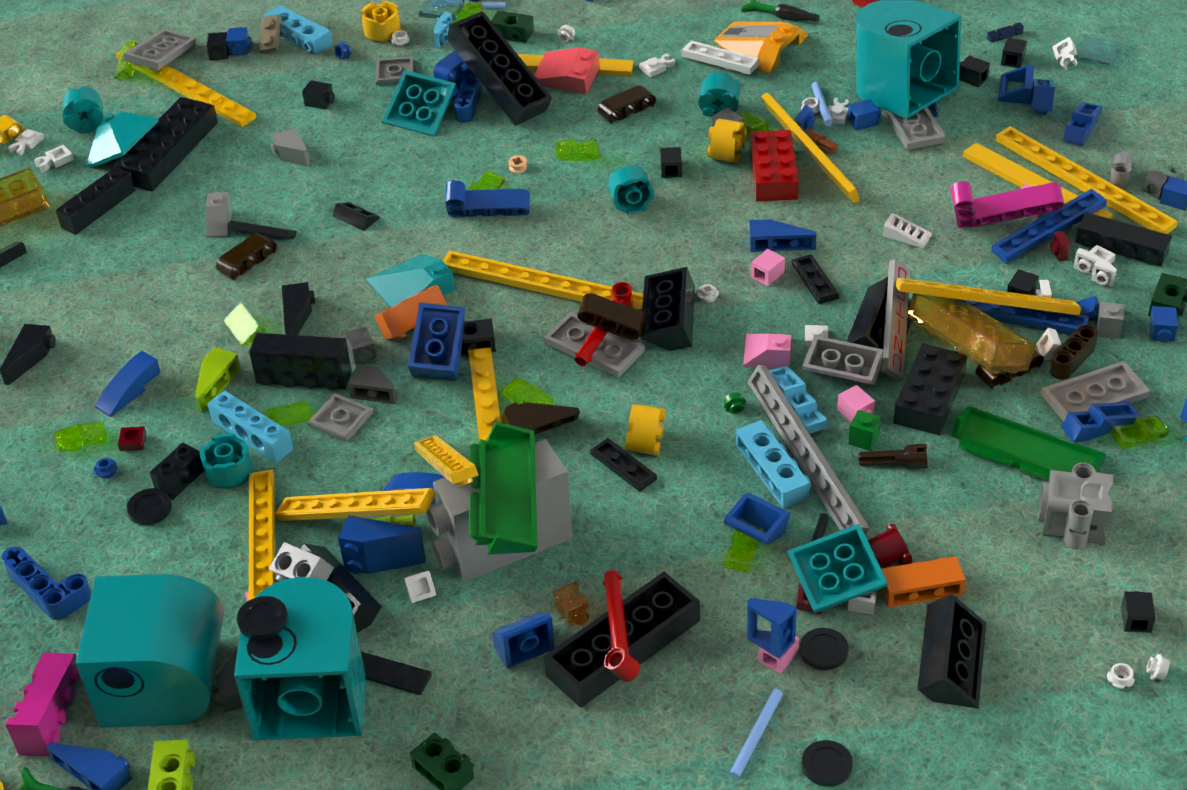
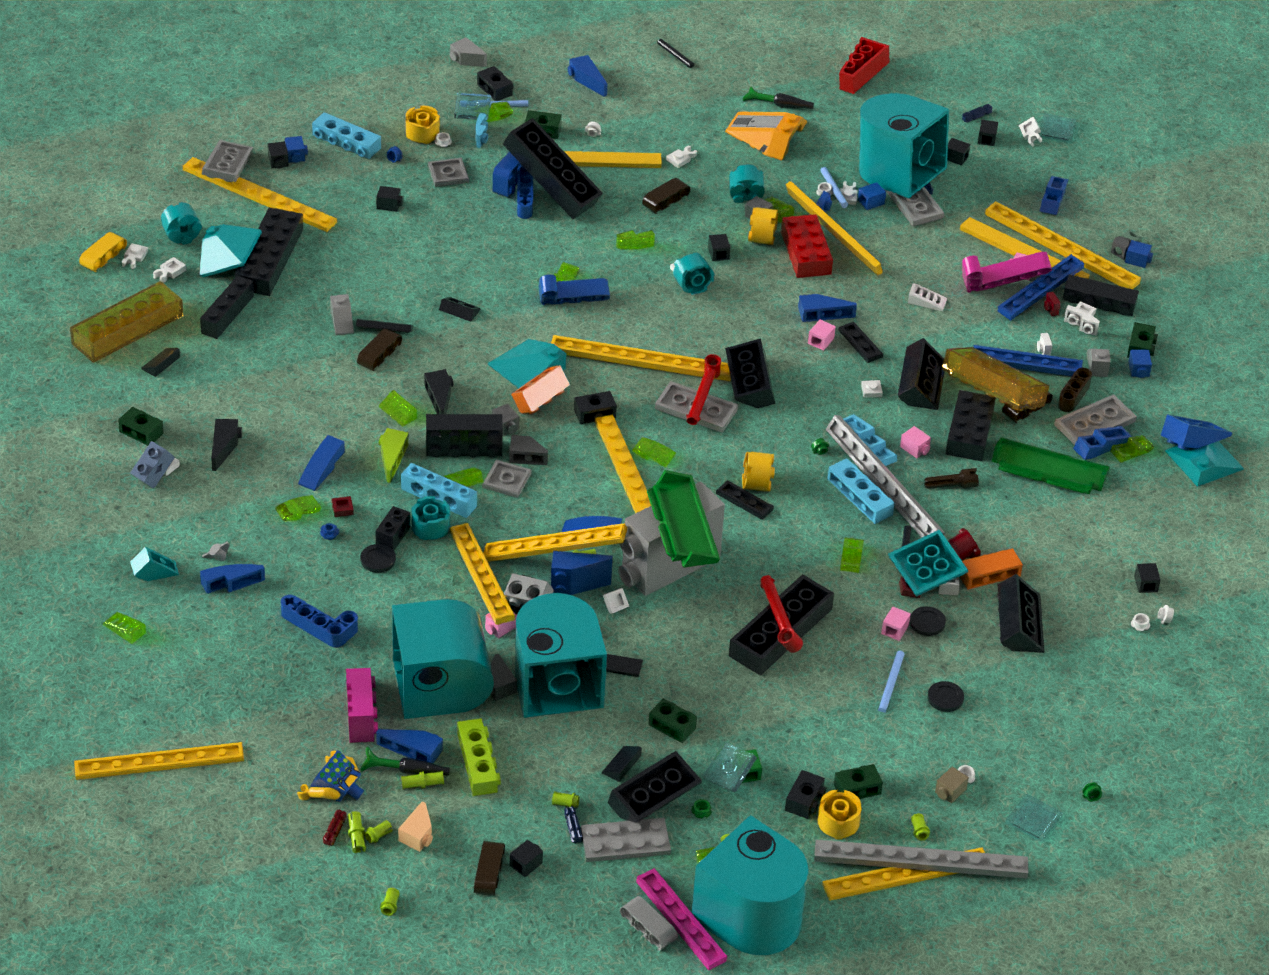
camera: 15 degrees left, 0 degrees up
(125, 69) = (196, 179): clear neon green slope -> none
(262, 617) = (533, 622): black piece -> none
(269, 34) = (323, 141): dark tan plate -> none
(290, 147) = (382, 249): light grey slope -> none
(419, 103) = (485, 203): teal slope -> none
(437, 342) = (574, 412): blue slope -> none
(446, 460) = (624, 502): yellow plate -> none
(518, 159) = (586, 259): light nougat bush -> none
(524, 639) = (708, 630): blue slope -> none
(538, 416) = (654, 468): dark brown slope -> none
(569, 69) = (607, 164): coral slope -> none
(571, 604) = (735, 605): clear orange brick -> none
(611, 316) = (711, 383): dark brown beam -> none
(707, 293) = (776, 359): white plate -> none
(720, 57) = (737, 147): white plate -> none
(761, 514) = (860, 532): blue tile -> none
(767, 350) = (836, 403): bright pink slope -> none
(783, 625) = (901, 595): blue tile -> none
(822, 142) = (845, 224): dark orange axle -> none
(844, 360) = (900, 407): light grey slope -> none
(864, 430) = (926, 461): green brick -> none
(895, 323) = (934, 372): light grey tile -> none
(988, 296) = (1003, 349): yellow tile -> none
(1022, 94) = (1000, 172): blue tile -> none
(1023, 283) = (1027, 339): black brick -> none
(1042, 96) = (1018, 171): blue slope -> none
(1048, 343) = (1055, 384): white plate -> none
(1076, 505) = (1094, 505): light grey piece -> none
(1089, 306) = (1080, 353): blue tile -> none
(1121, 170) = (1091, 235): light grey piece -> none

